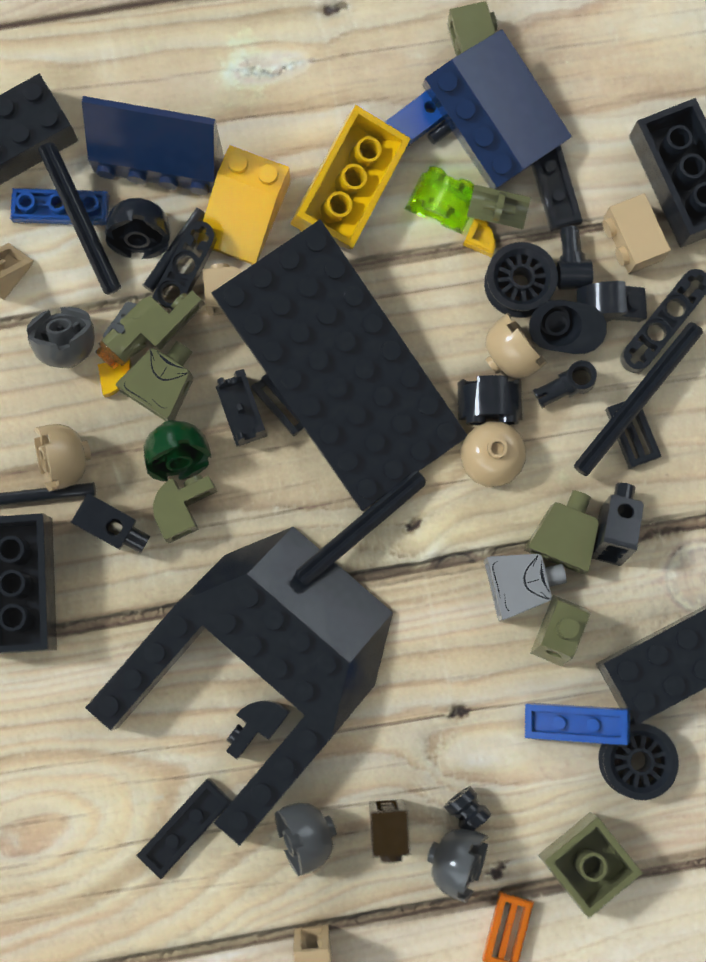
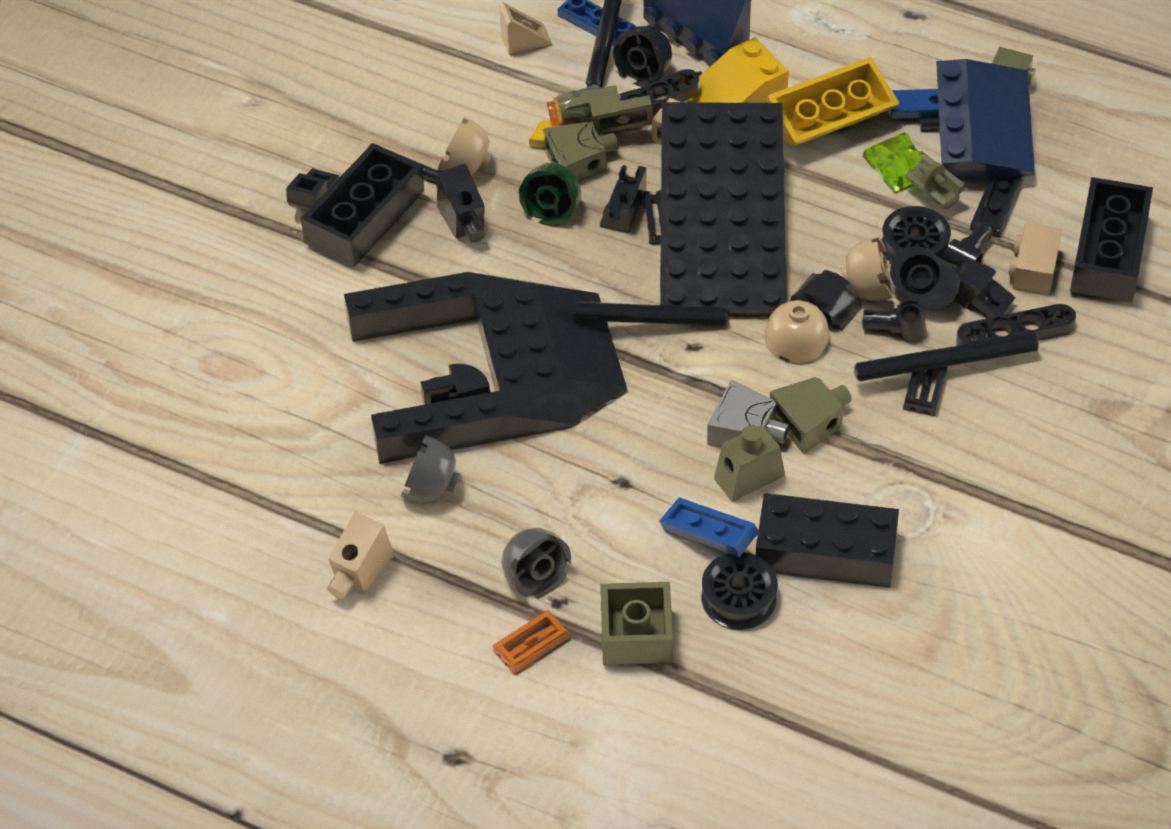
camera: 40 degrees right, 30 degrees down
(61, 338) = (529, 87): dark grey cylinder -> none
(172, 505) = (521, 225): olive brick -> none
(184, 828) = (336, 426): black tile -> none
(389, 830) = (498, 487): dark brown brick -> none
(467, 810) = (572, 530): black wheel -> none
(480, 238) = (906, 197): yellow tile -> none
(618, 526) = (853, 425): black torso -> none

